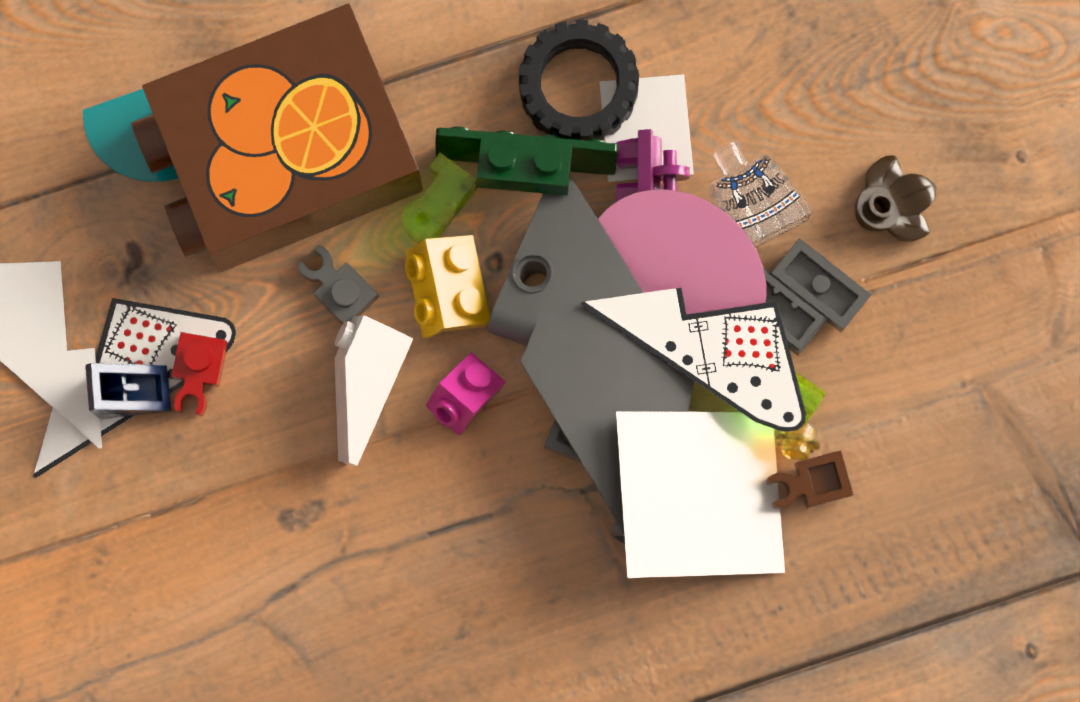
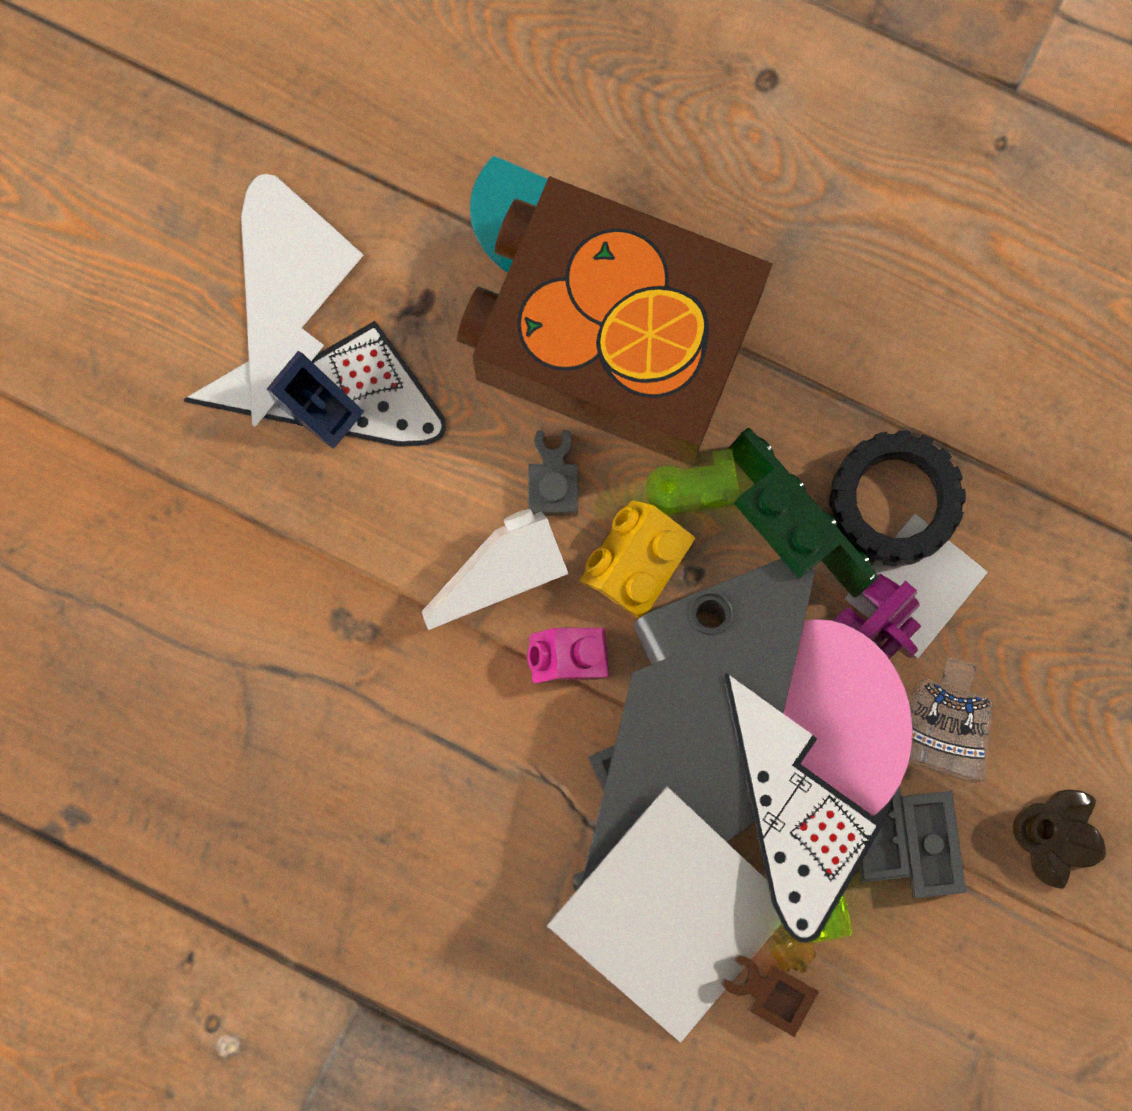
camera: 45 degrees right, 0 degrees up
(198, 364) = (388, 433): red plate -> none

